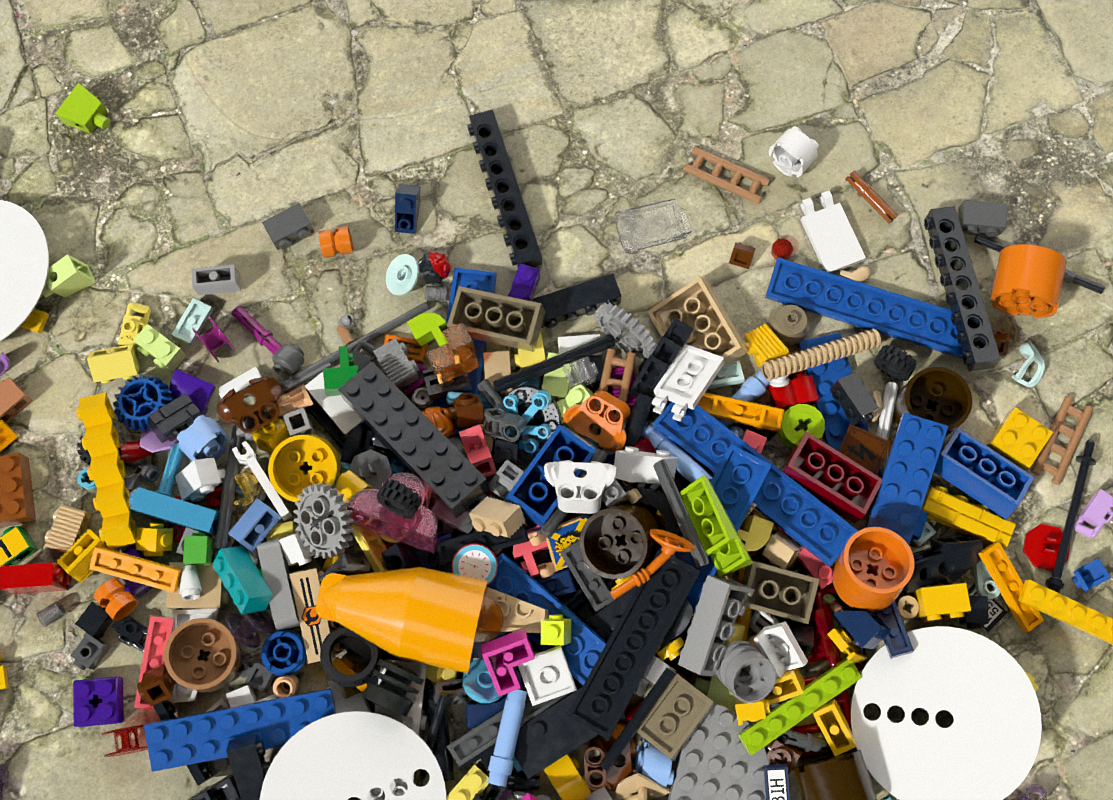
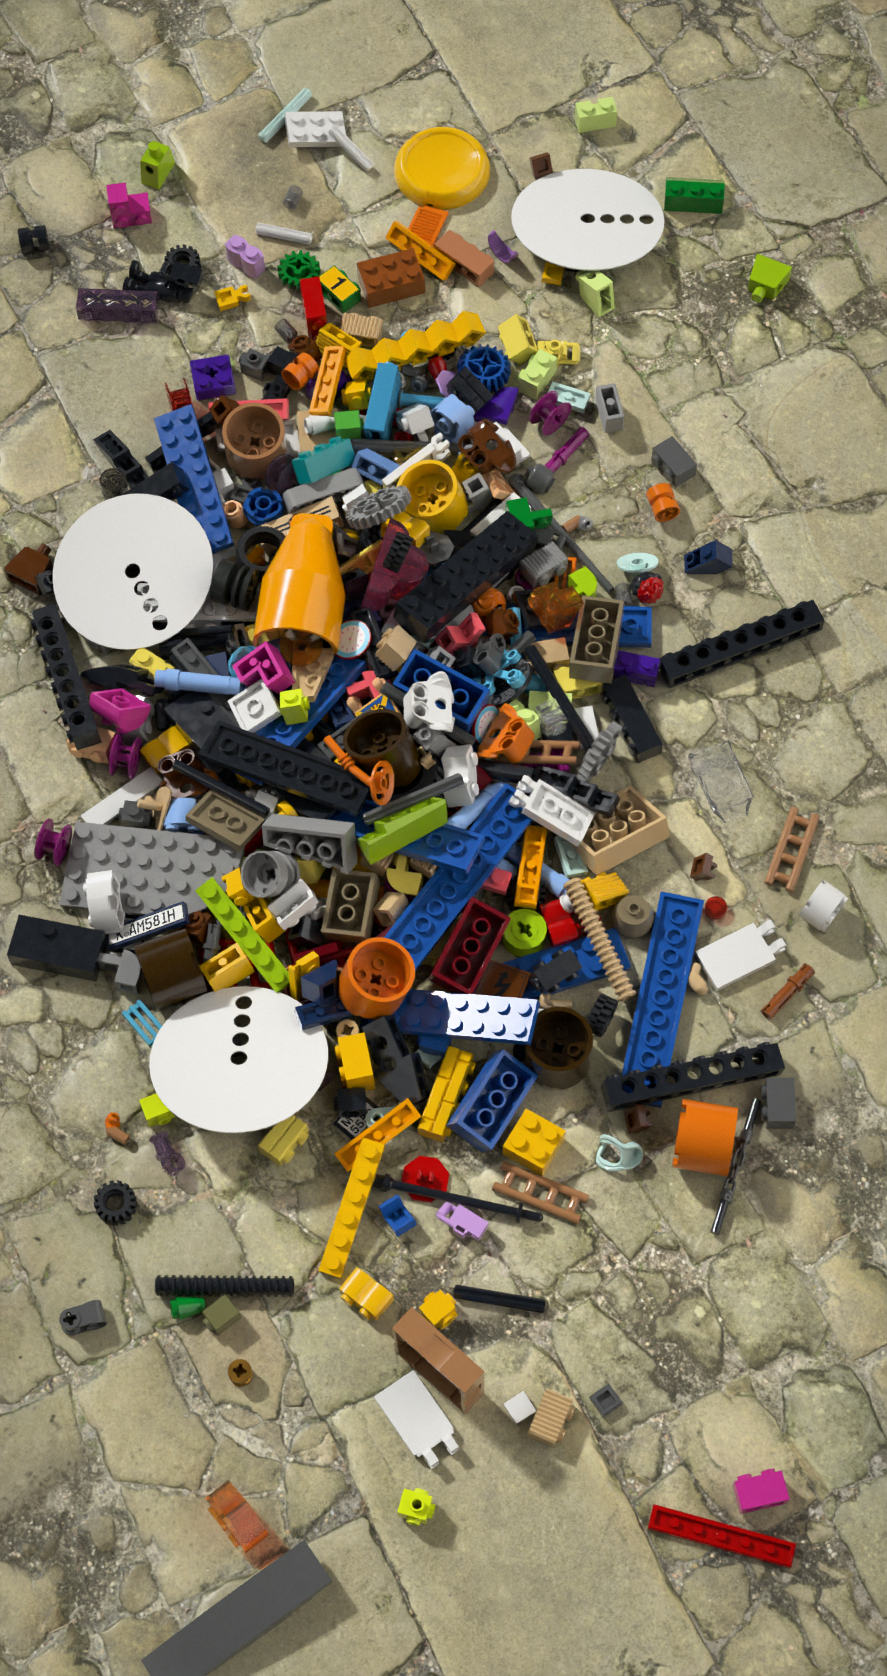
camera: 85 degrees right, 10 degrees down
(82, 592) = (305, 345): none -> reddish brown brick

